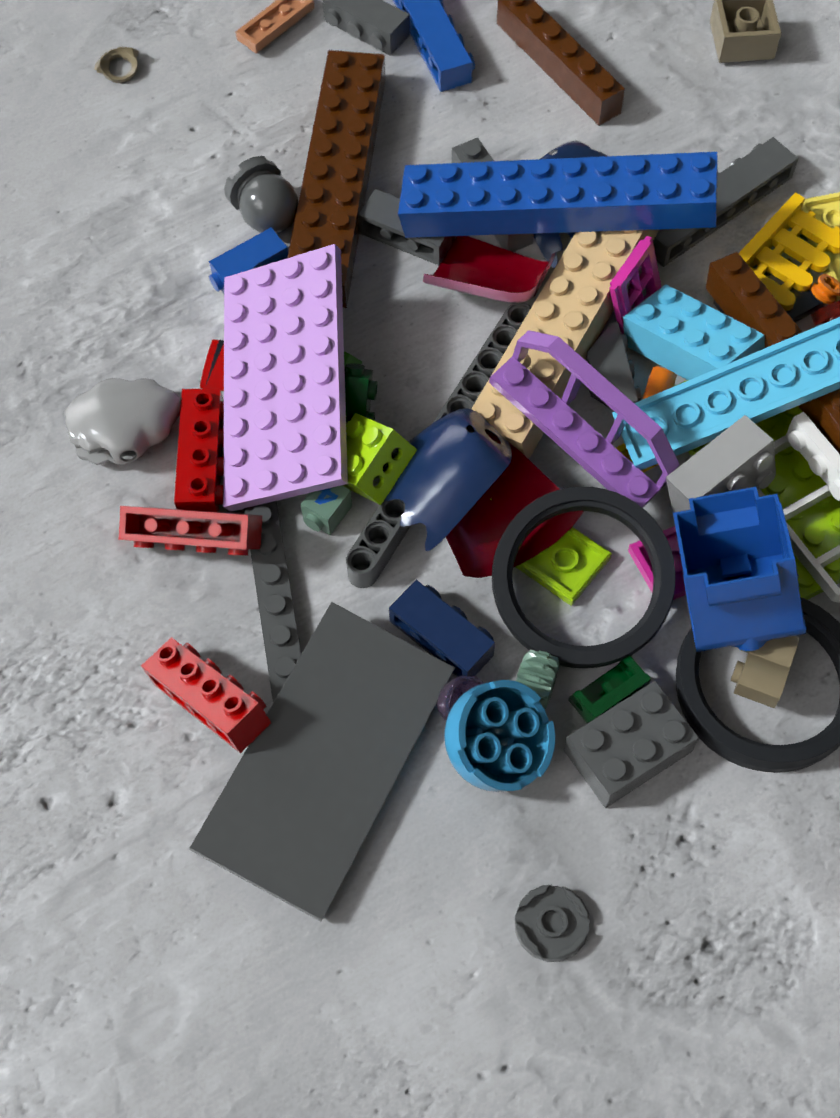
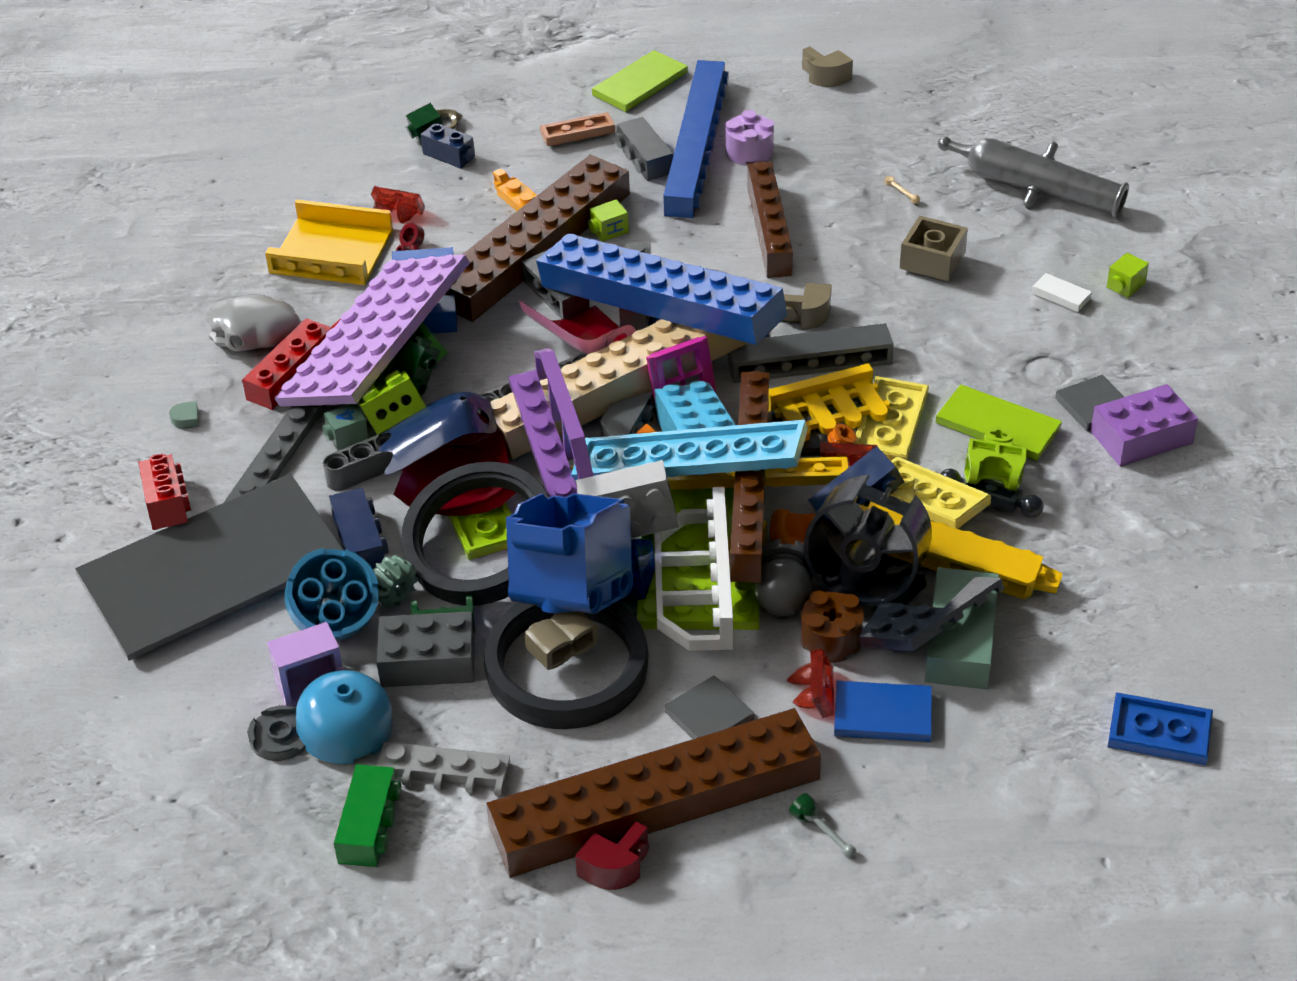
camera: 30 degrees right, 20 degrees down
(109, 78) = (421, 120): none -> dark green brick
(120, 274) = (332, 243): none -> yellow panel
(130, 571) = (184, 414): none -> sand green tile
(144, 193) = (405, 203): none -> clear red tile
(154, 95) = (447, 145): none -> dark blue brick
(190, 527) = (239, 397): red brick -> none
(199, 234) = (411, 237): none -> dark red plate
(262, 195) = (463, 222): dark grey tile -> none
(271, 127) = (512, 190): none -> light orange hinge
(399, 122) = (608, 220): none -> lime brick
(535, 834) = (302, 659): none -> lavender piece
(614, 874) = (343, 717): none -> dark azure cylinder
(676, 135) = (812, 308): none -> dark tan brick
(729, 979) = (367, 816): none -> green brick
(746, 872) = (446, 766): none -> light grey hinge

